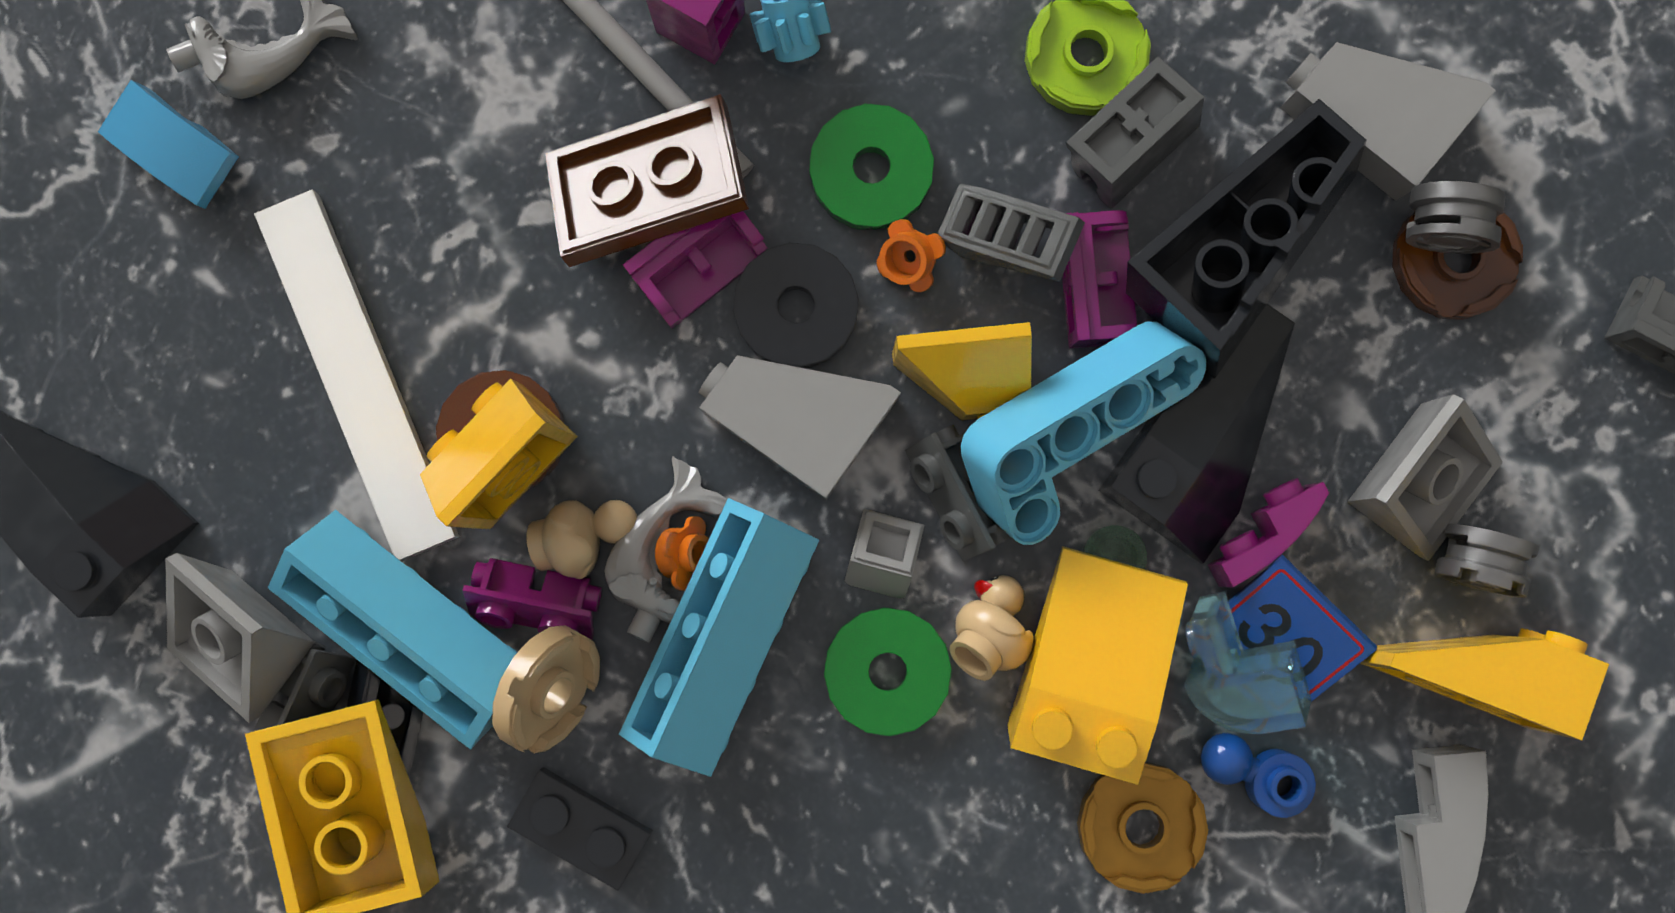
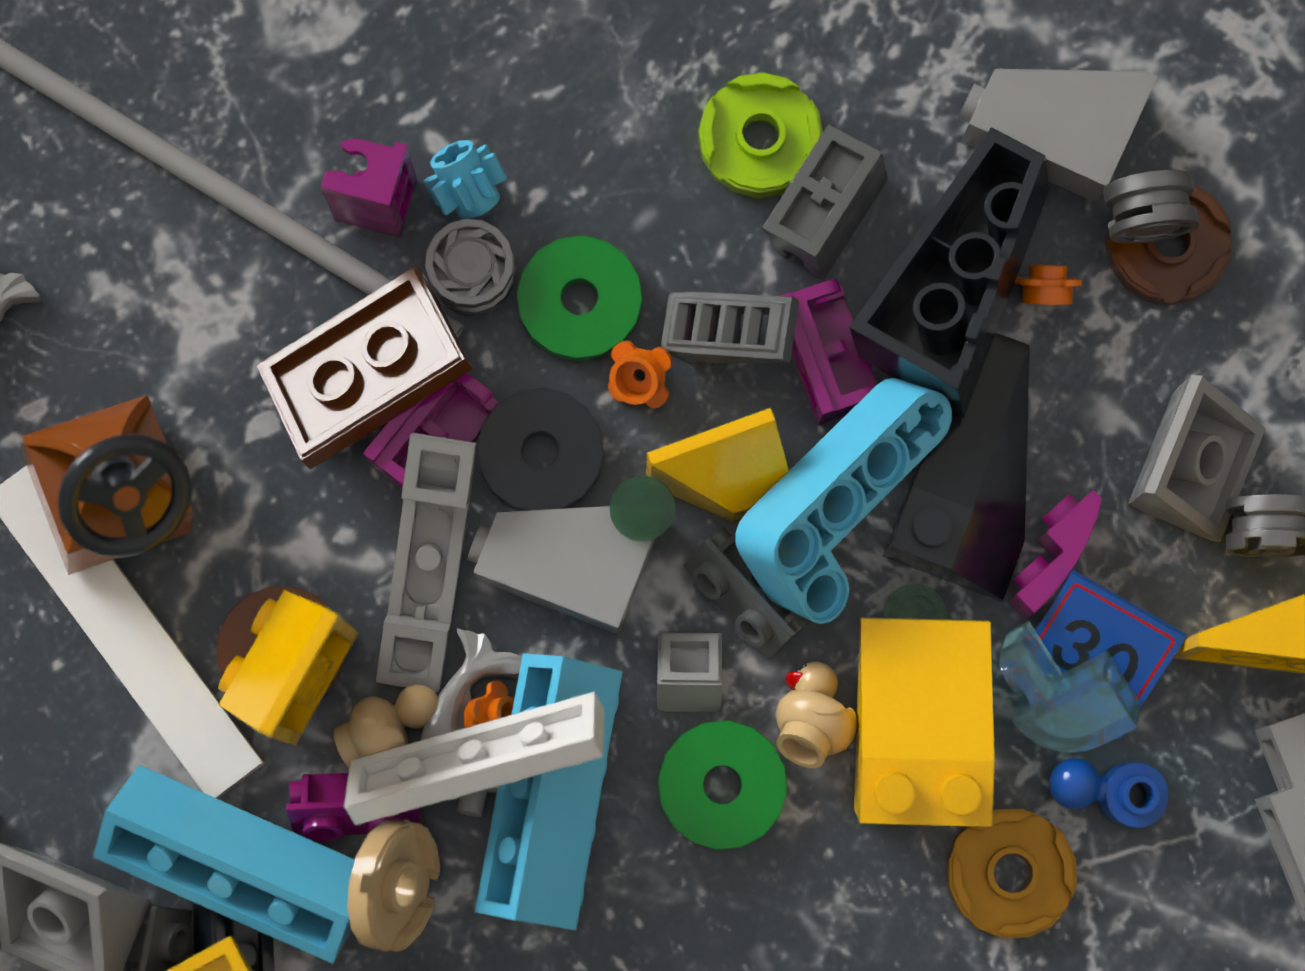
camera: 15 degrees left, 5 degrees down
(368, 232) = (109, 484): none -> piece
(654, 592) = (475, 758): none -> white plate
(659, 384) = (427, 561): none -> light grey slope
(773, 109) = (470, 267): none -> flat silver wheel
(878, 388) = (642, 508): none -> clear green plate
(1330, 269) = (1048, 285): none -> orange plate

